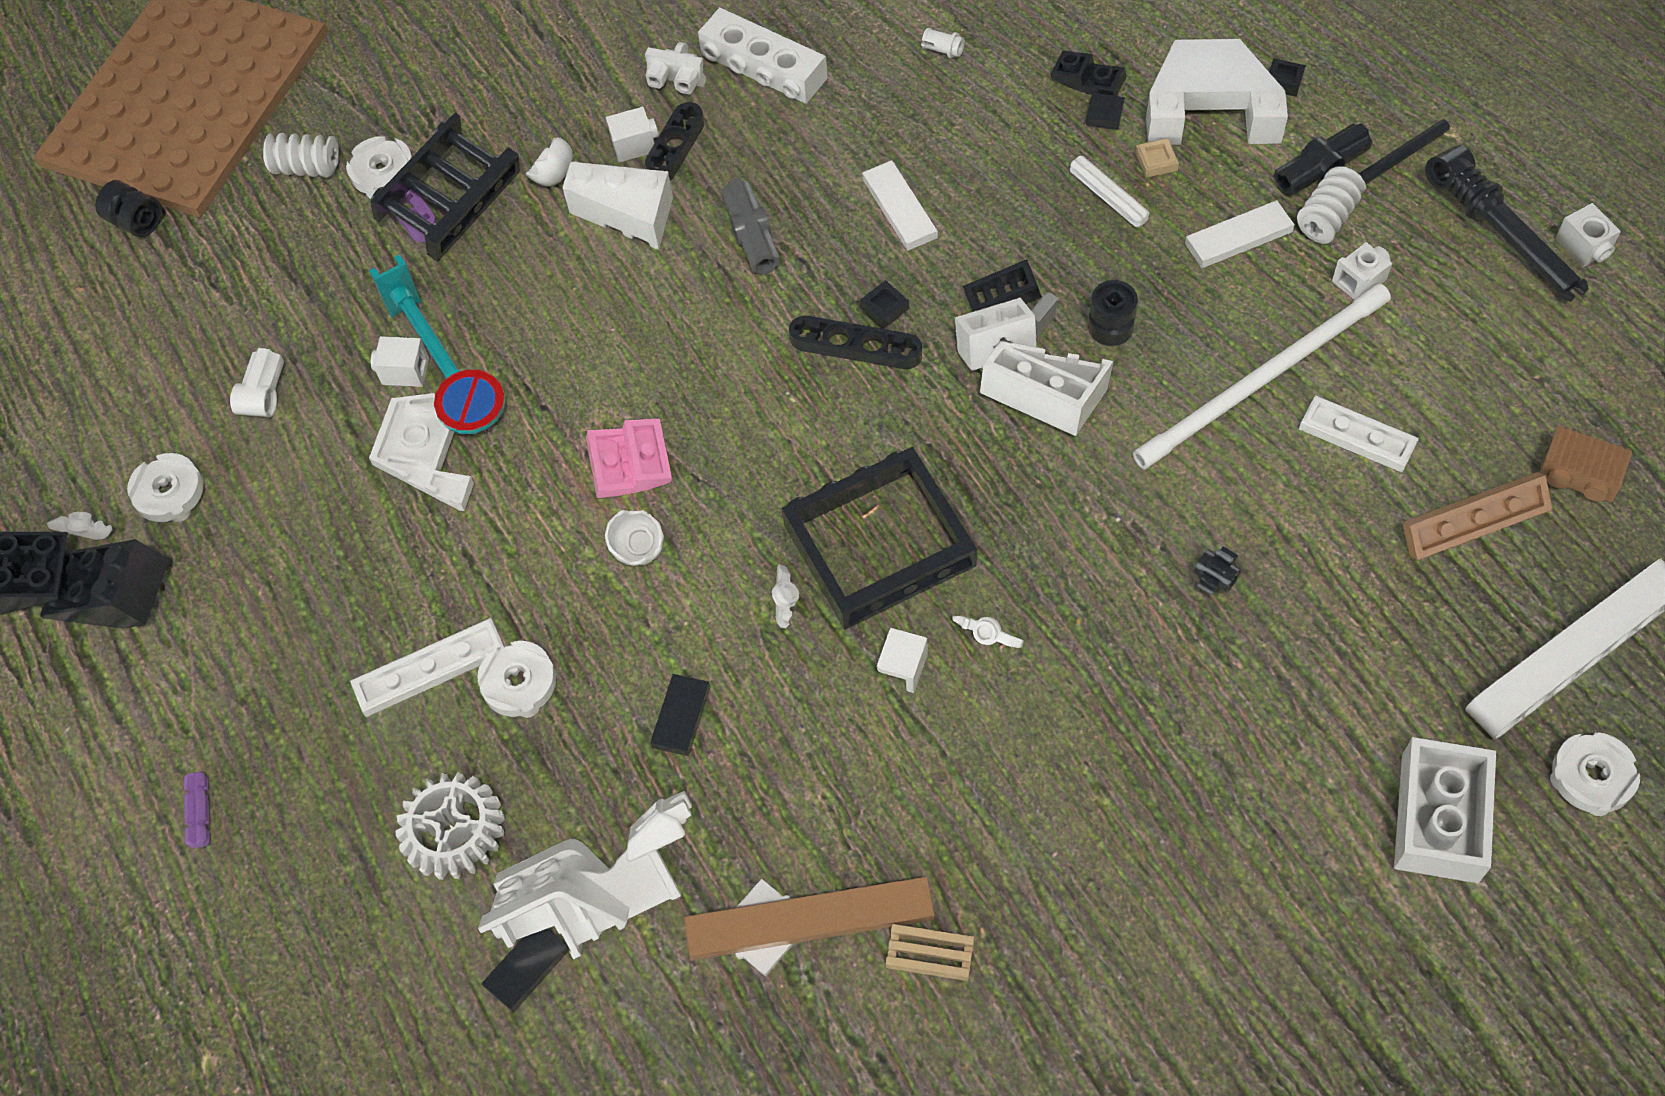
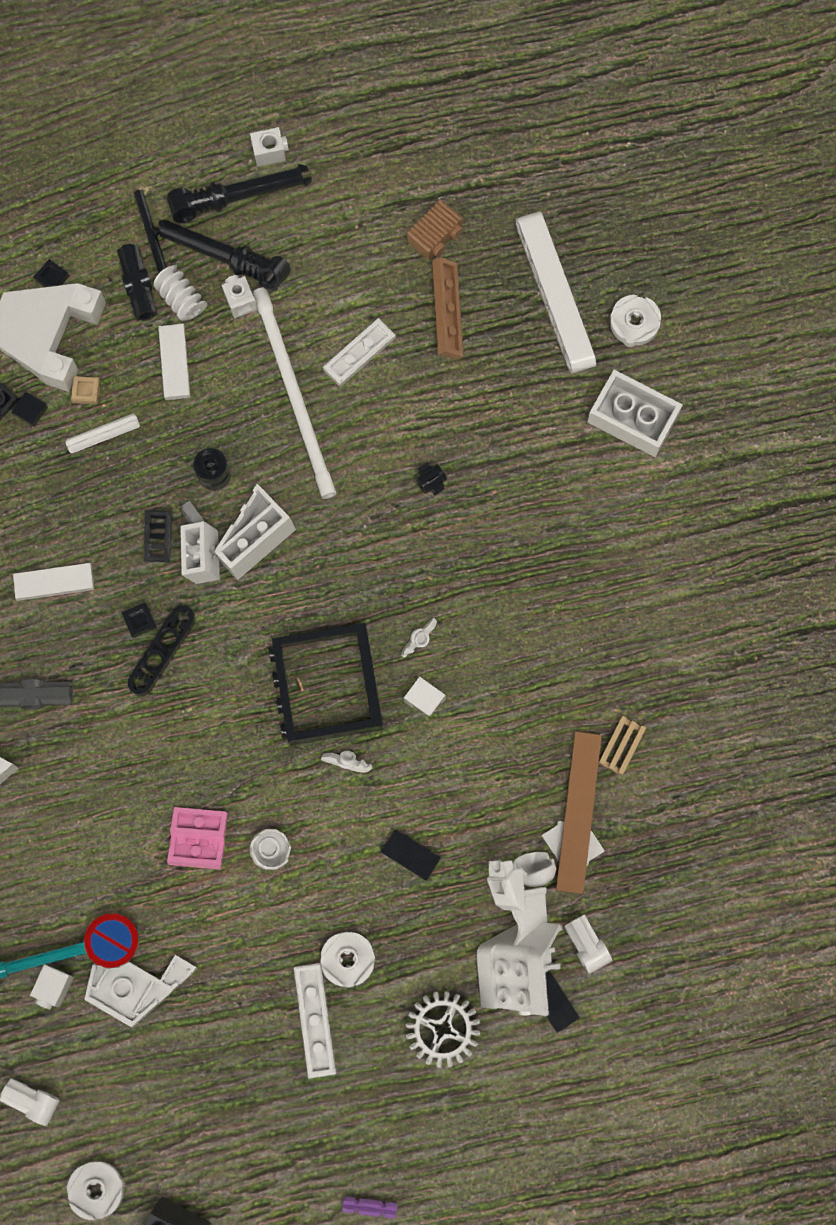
camera: 75 degrees left, 15 degrees up
(610, 996) = (590, 949): none -> white piece
(705, 878) = (536, 867): none -> white hair
(1413, 255) = (268, 271): none -> black piece

